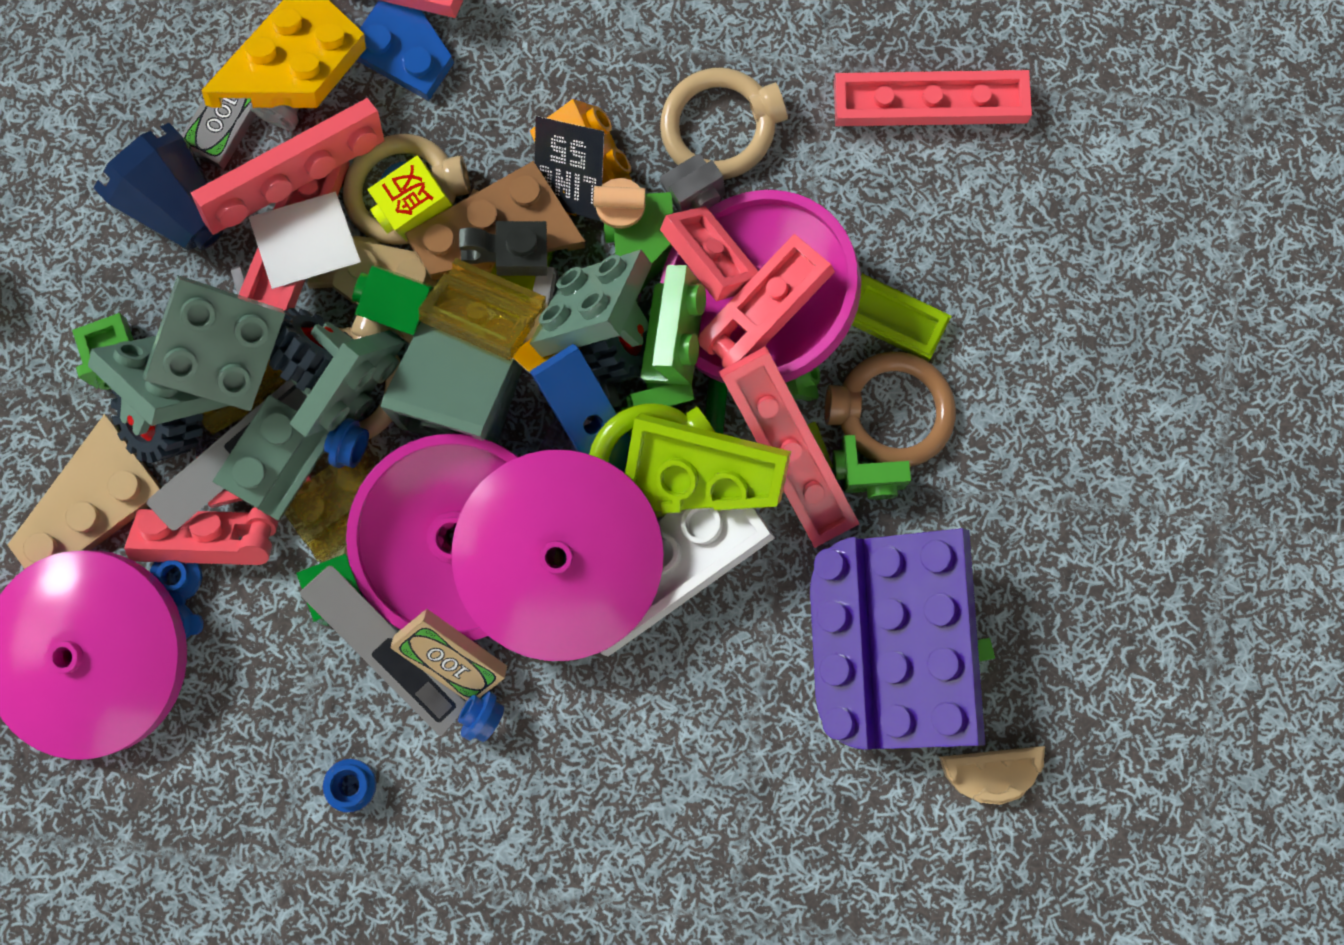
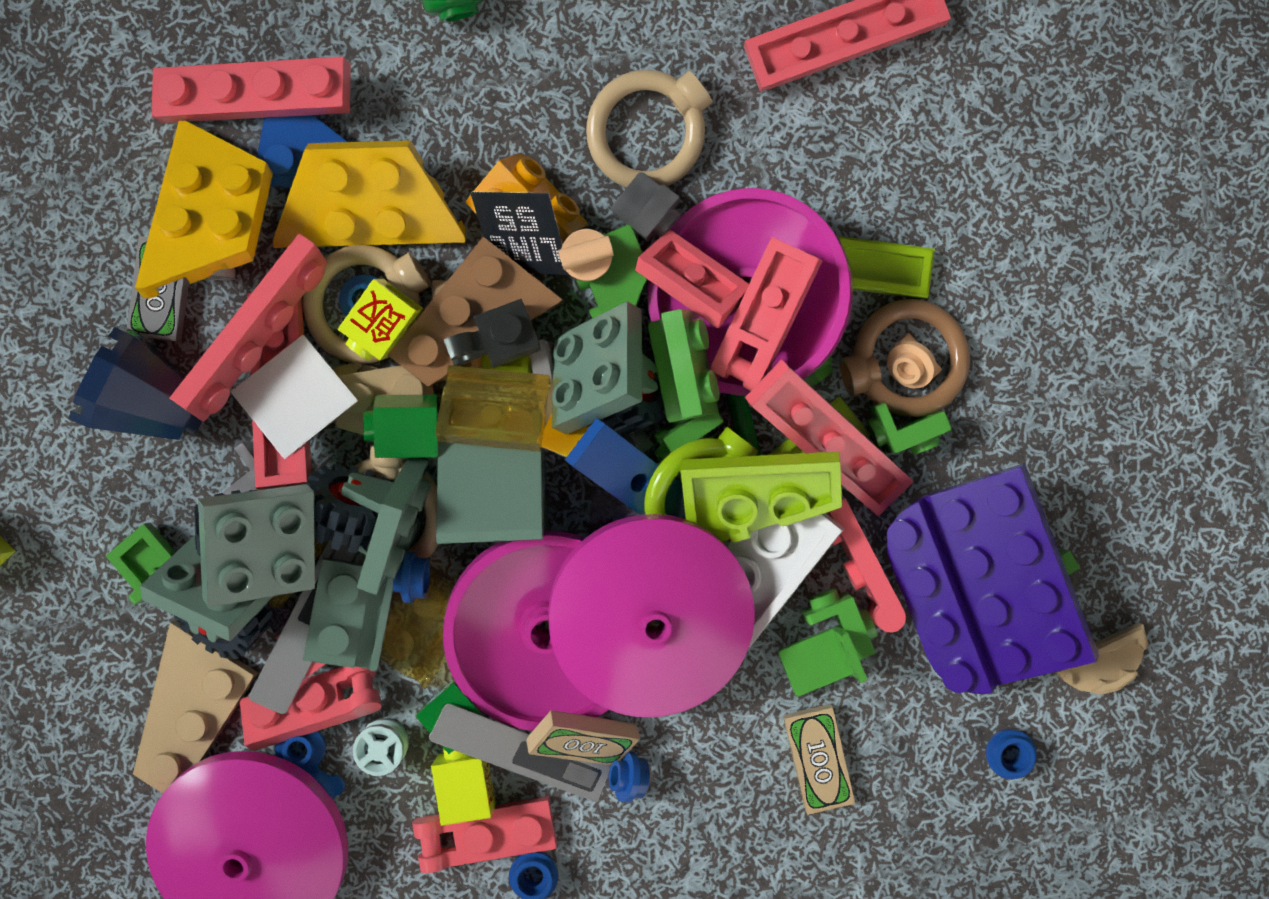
camera: 25 degrees left, 10 degrees up
(243, 596) = (373, 754): none -> light aqua wheel
(316, 664) = (462, 788): none -> neon yellow brick
(321, 726) = (511, 831): none -> coral plate
(442, 95) = (366, 198): none -> yellow wing
(674, 769) = (819, 759): none -> tan tile
(708, 667) = (821, 660): none -> bright green bracket
(756, 645) = (843, 607): none -> bright green bracket
(783, 588) = (865, 571): none -> coral plate
(885, 840) = (1021, 764): none -> blue plate
(895, 414) = (912, 363): none -> light nougat plate

